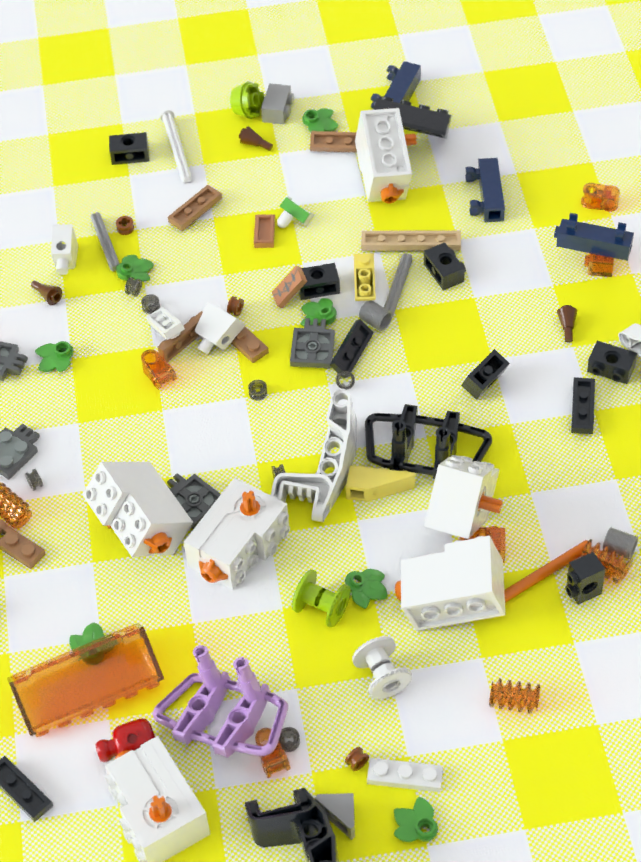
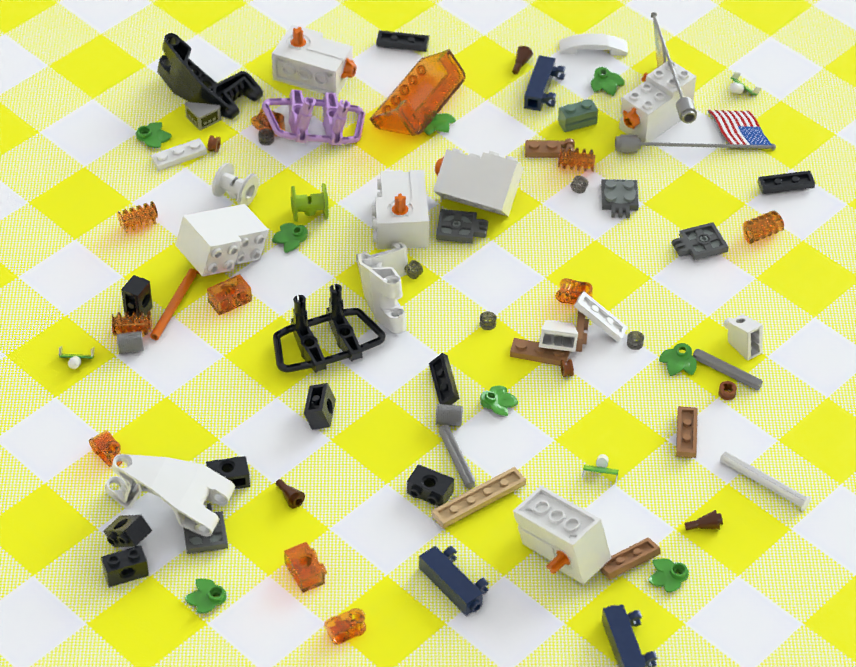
camera: 140 degrees right, 5 degrees down
(50, 293) = (719, 305): reddish brown cone -> none
(55, 356) = (661, 268): bright green plate -> none
(125, 737) = (358, 84): red piece -> none
(129, 148) = (800, 452): black brick -> none
(133, 286) = (661, 342): clear smoke bush -> none
(247, 100) = (746, 544): lime cone -> none
(264, 231) = (611, 447): nougat tile -> none
(277, 103) = (722, 566): light grey brick -> none
(289, 286) = (535, 395): nougat tile -> none
(312, 345) = (476, 368): dark grey piece -> none
(321, 281) = (521, 419): black brick -> none
(347, 374) = (427, 355): clear smoke bush -> none
(364, 277) = (484, 436): light yellow slope -> none
(374, 483) = (351, 295): light yellow slope -> none
(419, 118) = (575, 594): black slope -> none
(462, 496) = (255, 281): white piece -> none
(583, 405) = (227, 430): black plate -> none
(594, 238) = (312, 550): dark blue brick -> none

